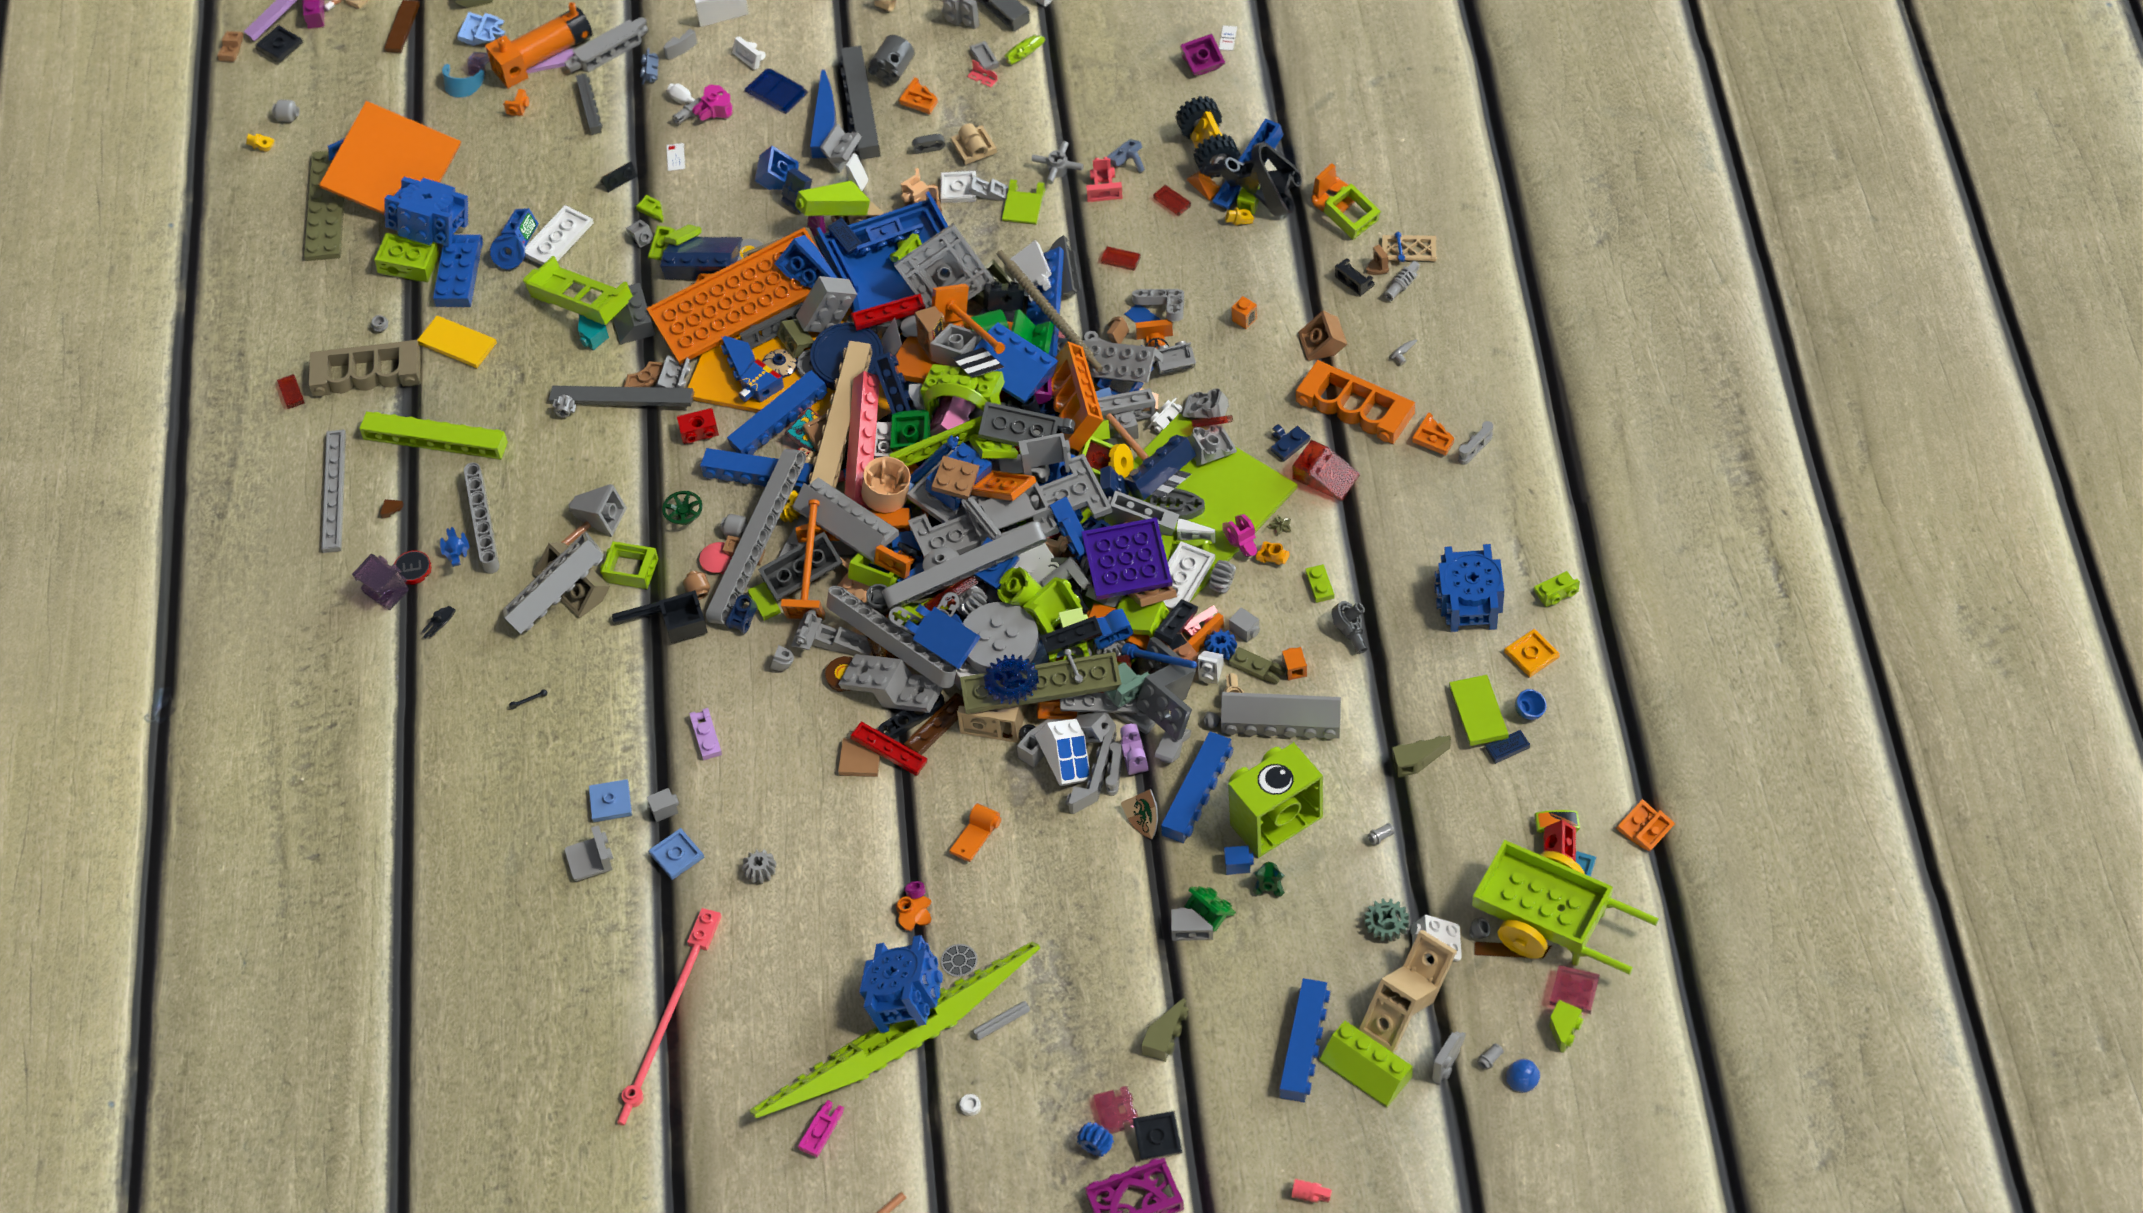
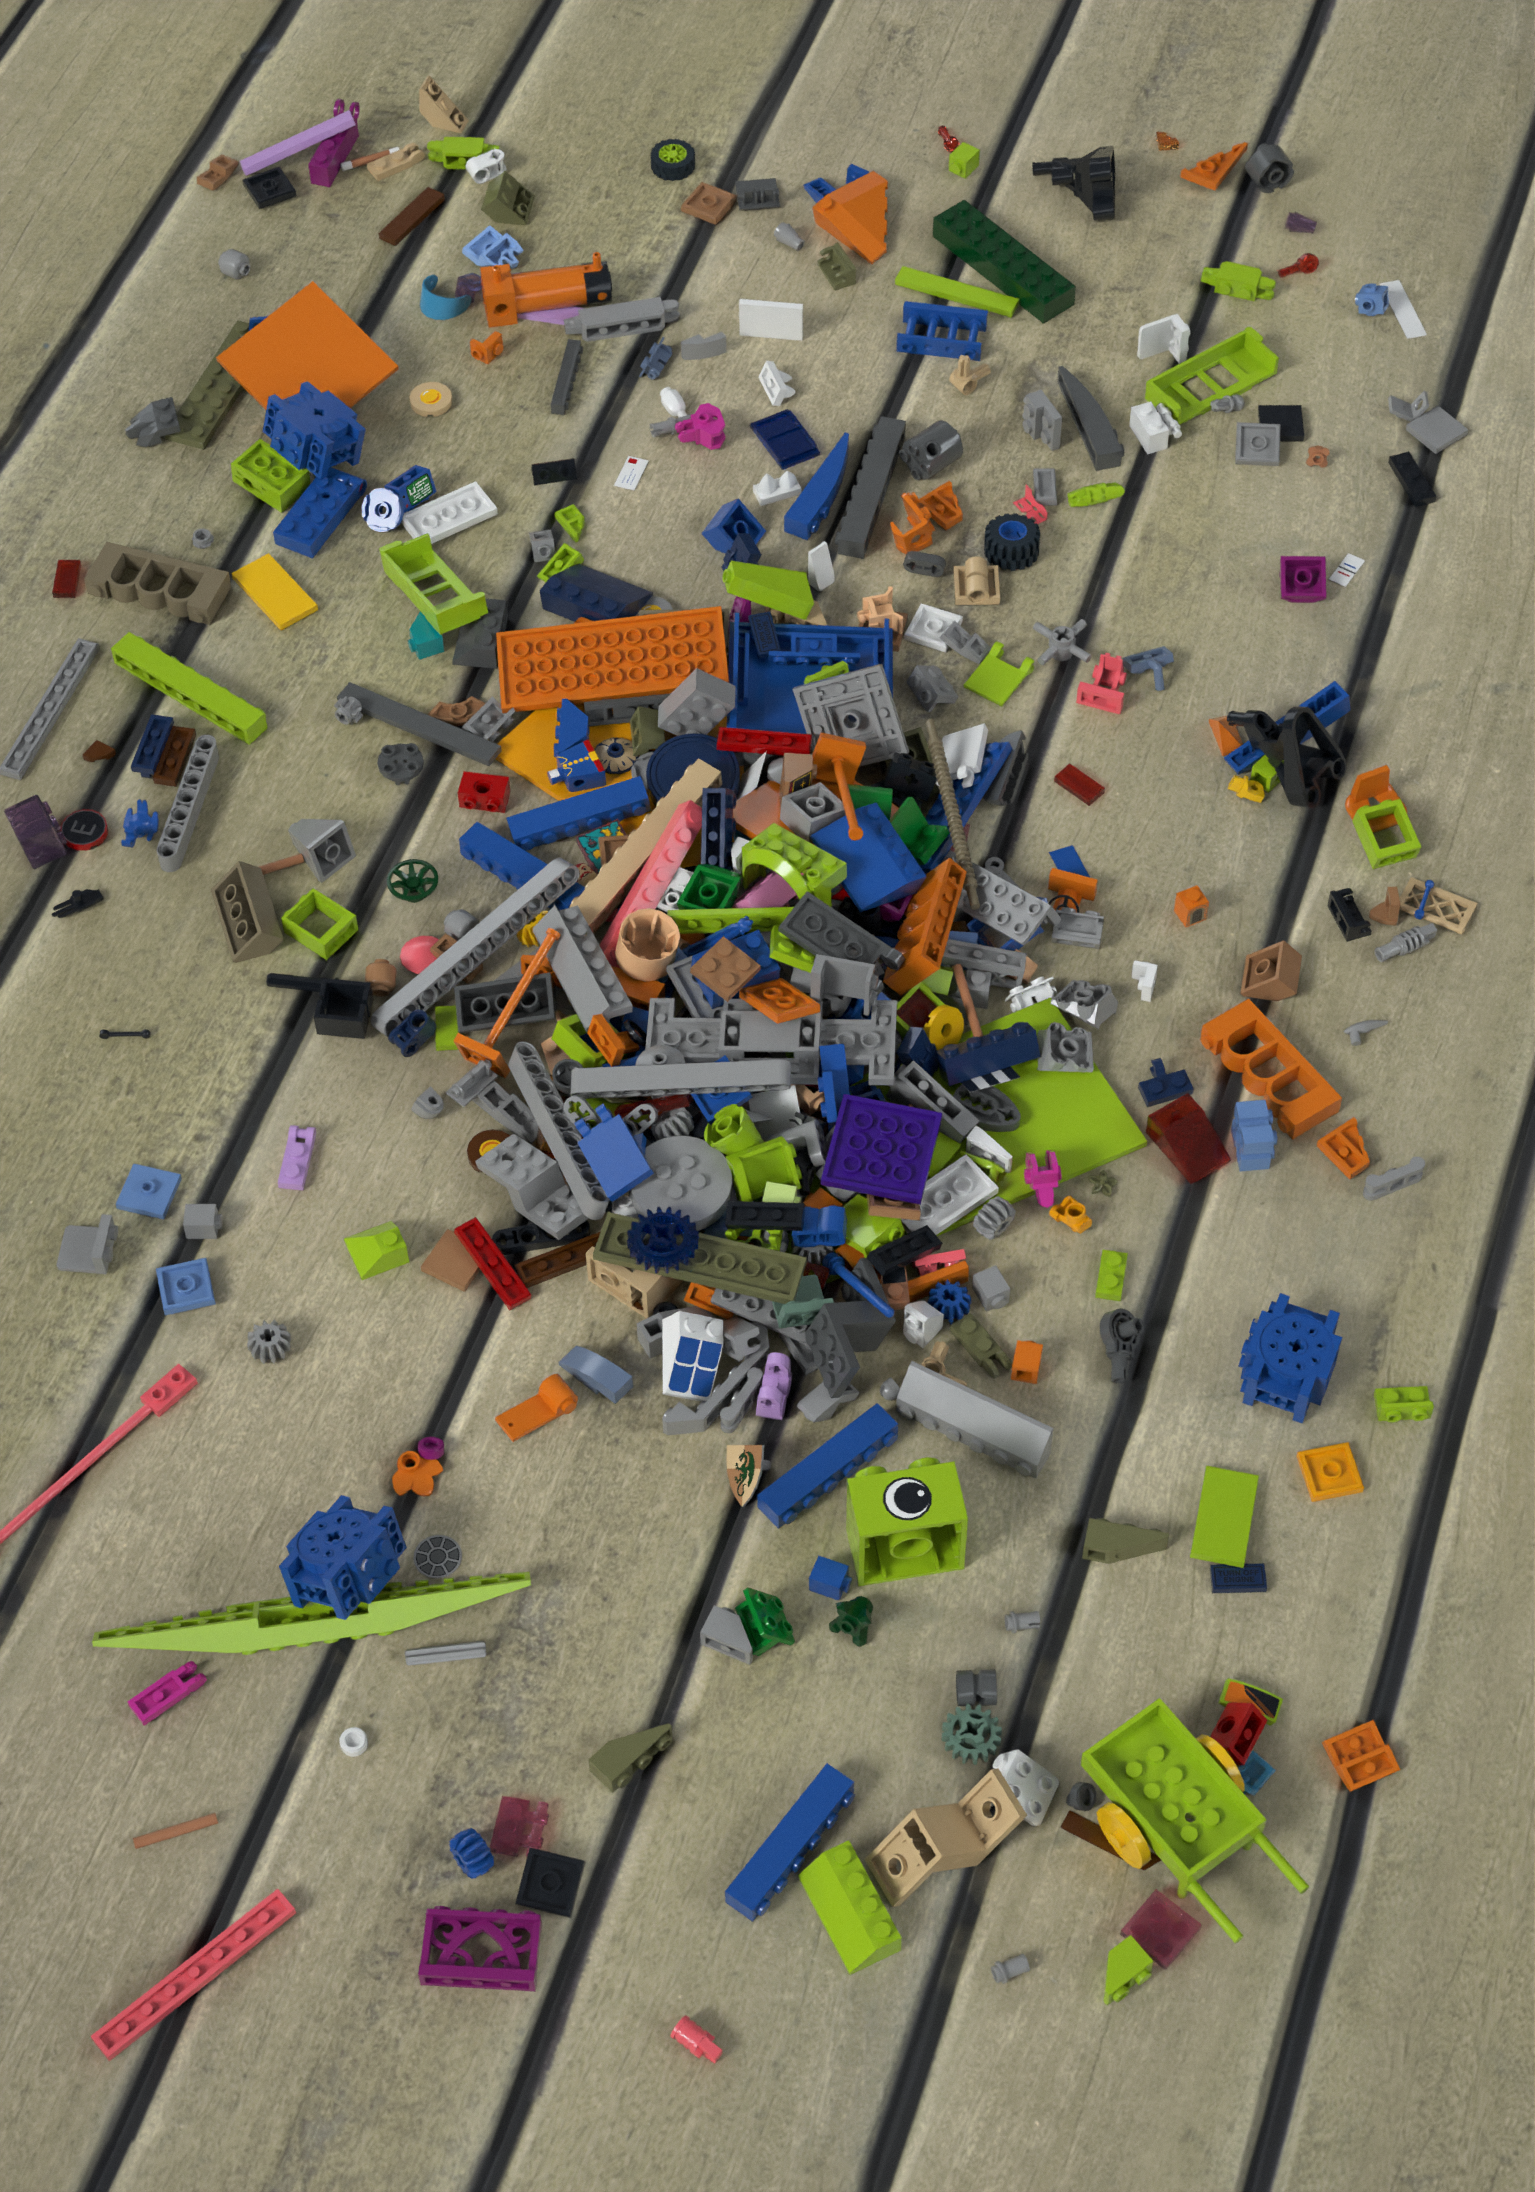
camera: 20 degrees right, 0 degrees up
(261, 142) = (186, 286): yellow piece -> none
(292, 251) = (154, 421): none -> dark grey plate
(431, 486) = (152, 745): none -> dark blue plate
(451, 488) = (174, 756): none -> reddish brown plate
(494, 157) = (431, 399): none -> tan tile
(553, 582) = (217, 909): light grey slope -> none
(619, 429) = (400, 762): none -> dark grey plate
(683, 234) = (587, 564): lime tile -> none
(790, 129) = (774, 490): none -> white tile
(800, 772) = (377, 1250): none -> lime slope
(803, 262) = (697, 645): blue wedge -> none
(839, 146) = (817, 527): light grey bracket -> none
(910, 114) = (922, 526): none -> orange piece
(977, 362) = (823, 840): sticker -> none
(980, 229) = (931, 687): none -> light grey bracket
(982, 519) = (732, 1031): light grey axle -> none
(983, 104) = (1012, 541): none -> black wheel
(1003, 791) = (597, 1373): none -> sand blue slope
(1078, 678) = (745, 1271): light grey hinge -> none
(1117, 330) = (1028, 869): medium nougat tile -> none
(1171, 297) = (1112, 855): light grey beam -> none
(1172, 200) = (1177, 738): clear red tile -> none
(1200, 122) = (1254, 657): black plate -> none
(1212, 421) = (1079, 1022): clear red tile -> none
(1238, 370) = (1146, 974): none -> white bracket
(1368, 450) = (1253, 1135): none -> medium blue brick
(1374, 888) = (976, 1687): none -> dark grey wheel
(1447, 1056) = (953, 1944): light grey plate -> none
(1522, 1075) = (1039, 2012): blue piece -> none
(1530, 704) = (1292, 1537): blue piece -> none

